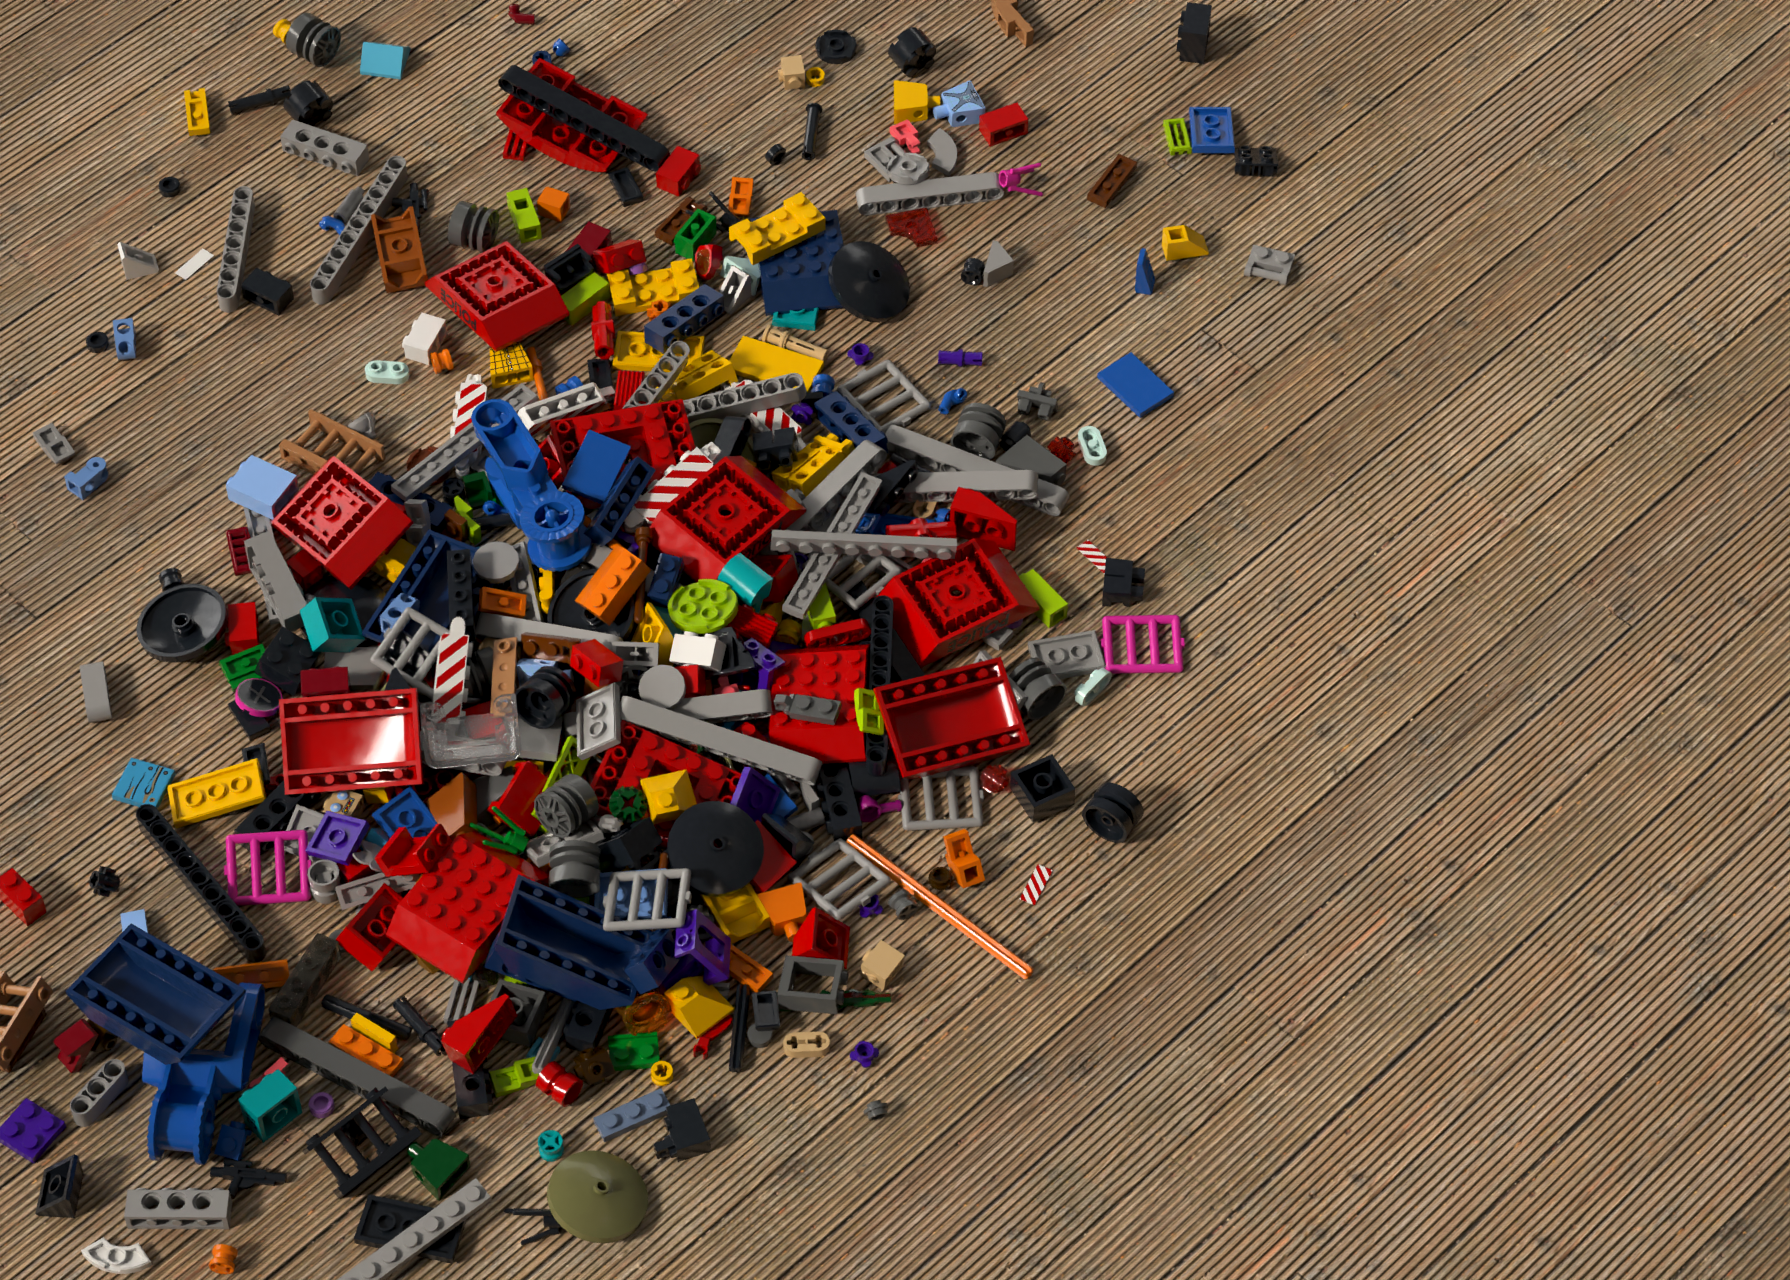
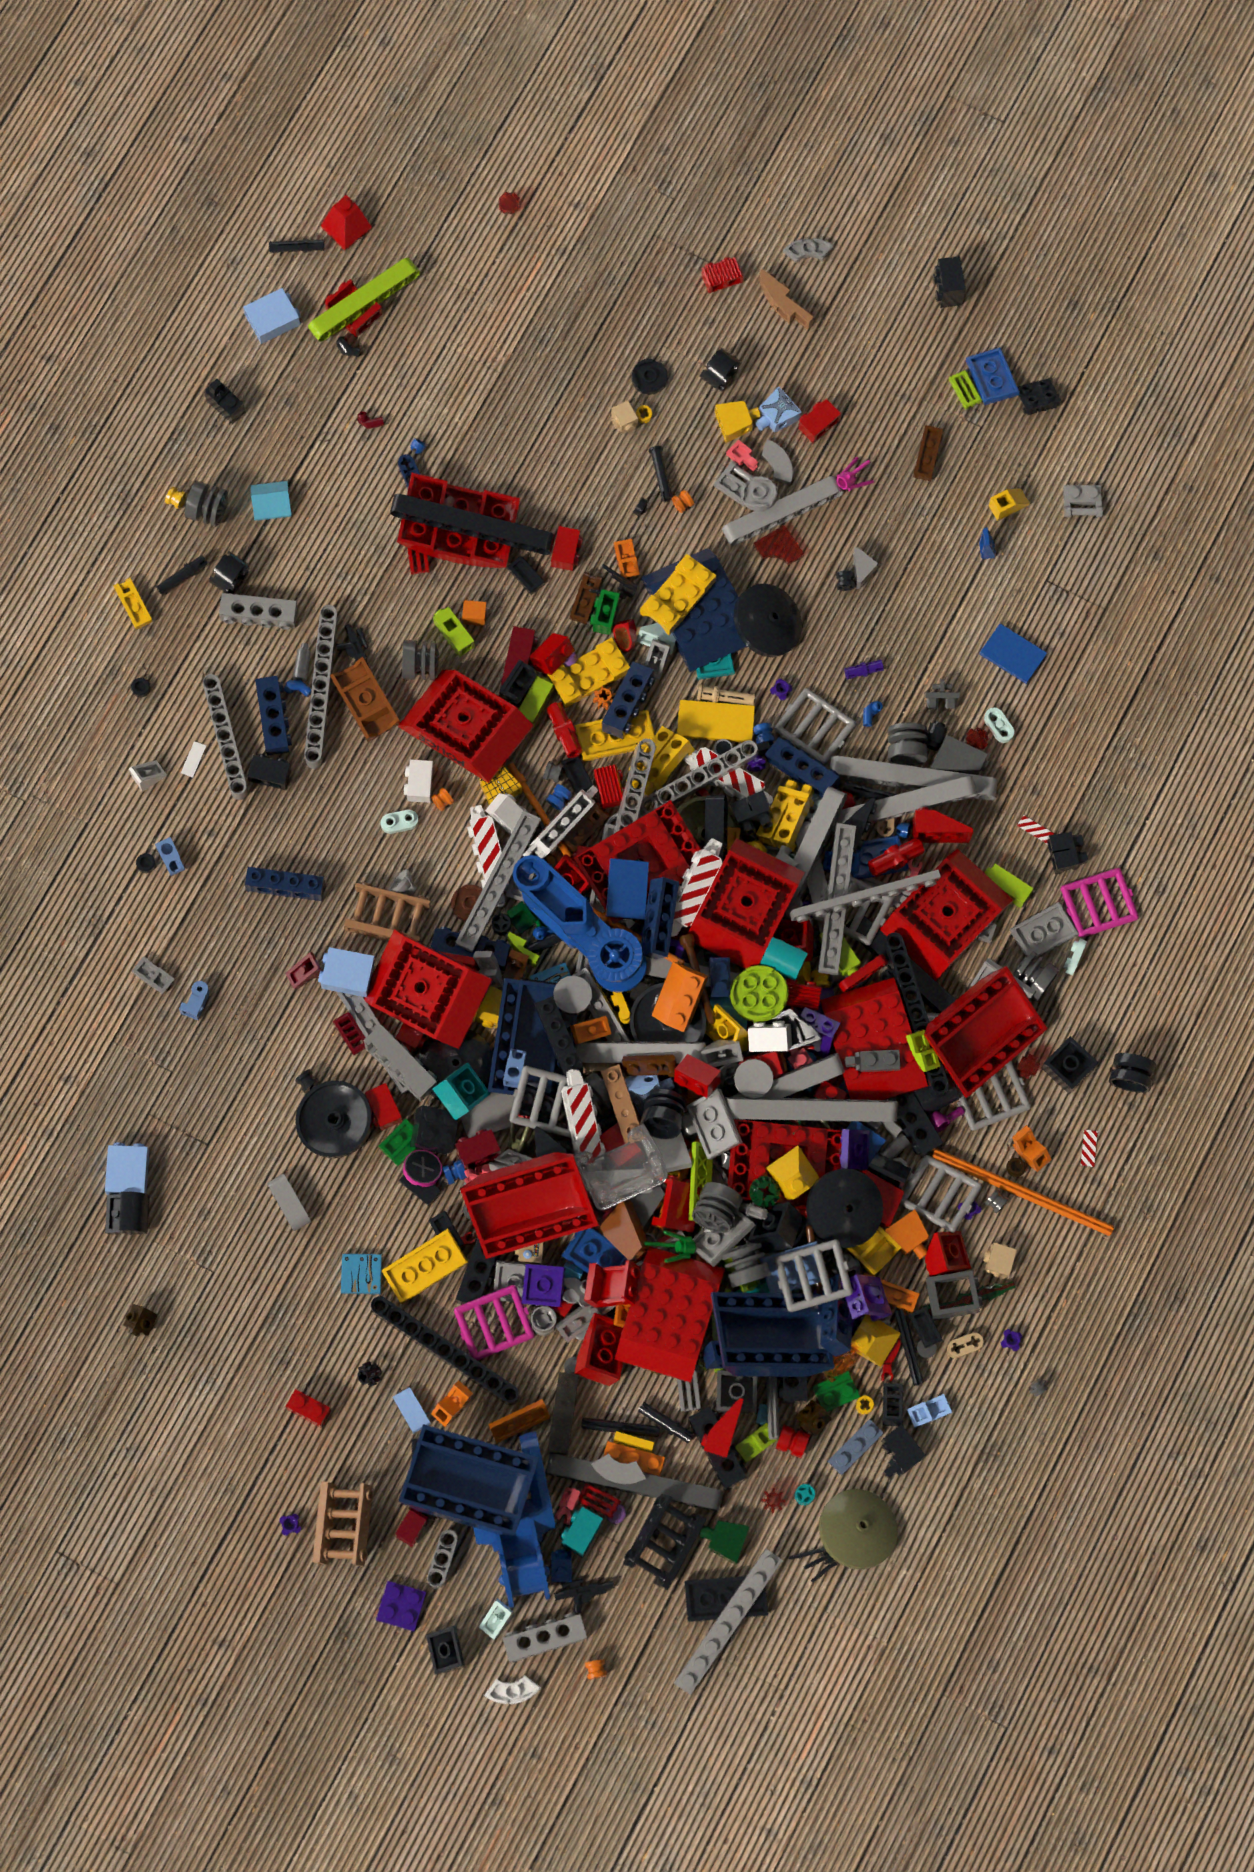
camera: 20 degrees left, 20 degrees up
(133, 1172) = (496, 1619): none -> light aqua slope
(188, 935) = (452, 1404): none -> orange brick
(215, 477) = (303, 971): none -> dark red slope
(235, 394) = (284, 883): none -> dark blue brick
(295, 242) = (266, 687): none -> dark blue brick
(316, 1094) = (613, 1508): none -> red tile
(340, 1054) = (618, 1472): none -> light grey tile
(501, 380) = (505, 811): none -> white brick
(510, 1140) = (773, 1506): none -> clear red gear
(574, 365) = (553, 771): none -> dark grey wheel
(684, 1092) = (892, 1417): none -> black slope
(736, 1102) = (929, 1411): none -> light blue slope
(823, 159) = (682, 501): none -> orange wheel

